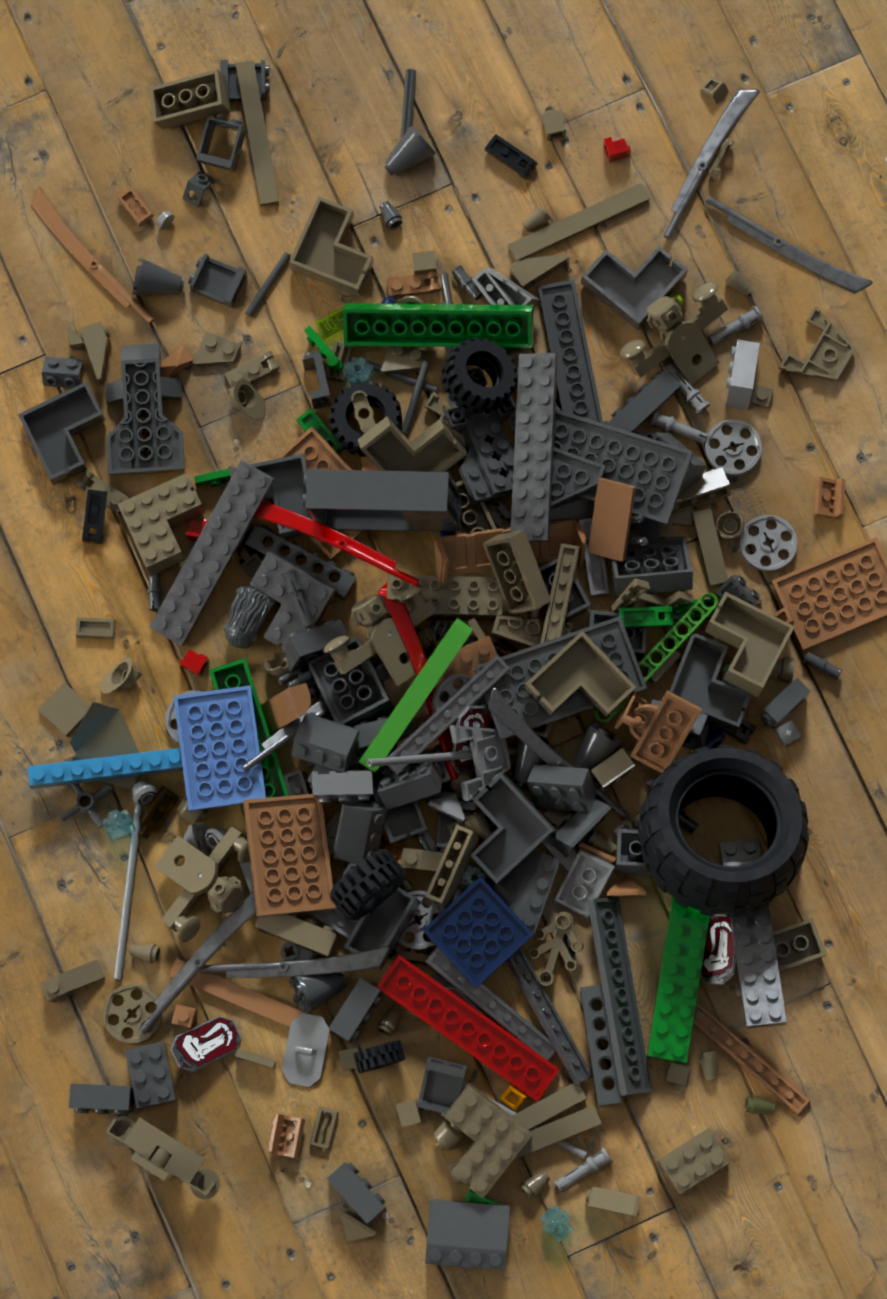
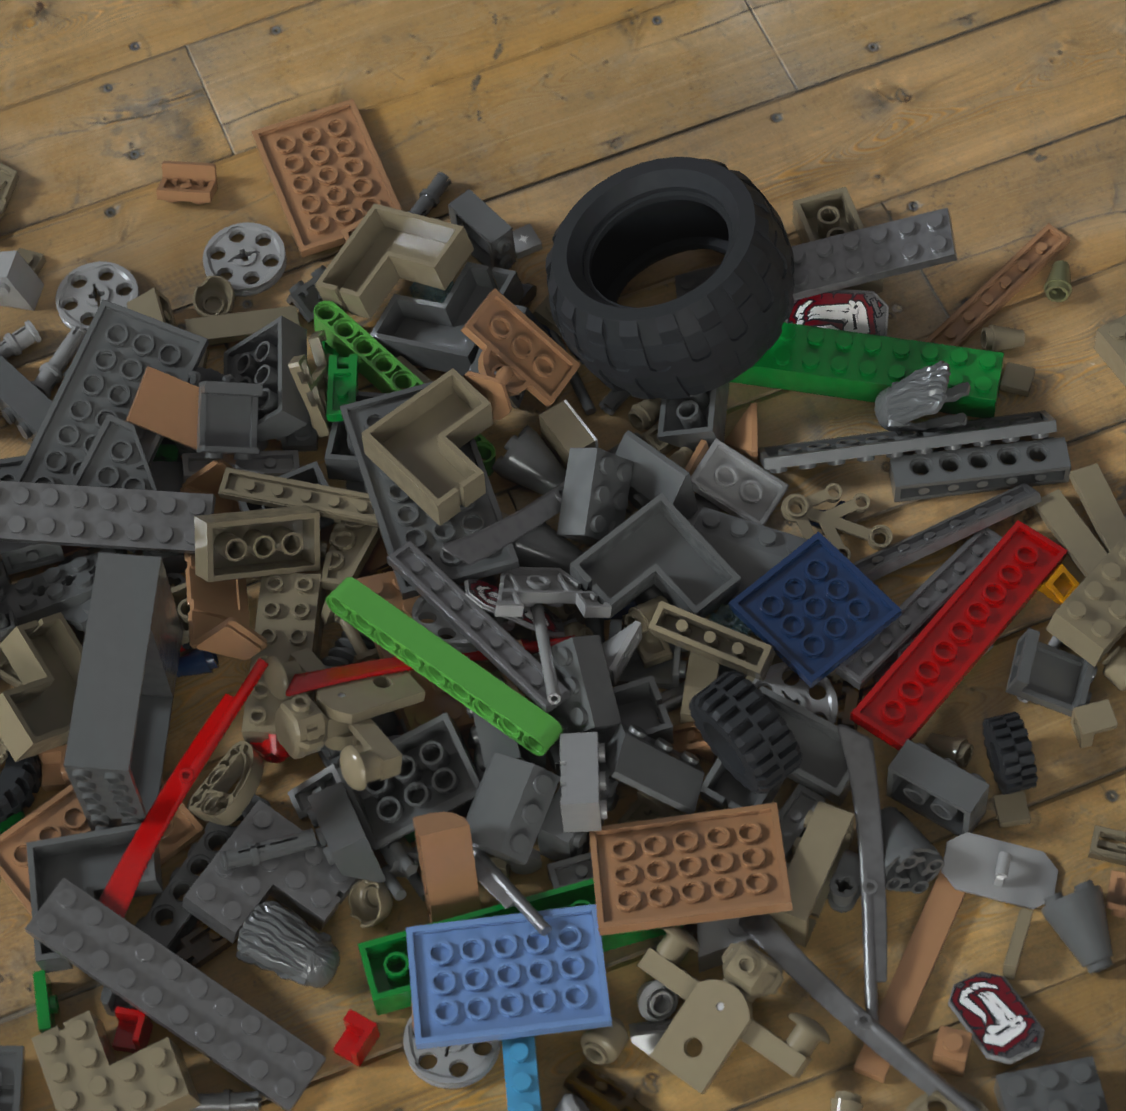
camera: 85 degrees left, 20 degrees down
(266, 1098) = (1082, 925): none -> dark grey cone
(352, 629) = (318, 782): none -> light grey slope
(374, 576) = (211, 799): none -> dark tan beam
(608, 544) = (228, 419): none -> dark grey panel
(639, 1002) = (920, 395): none -> dark grey hair

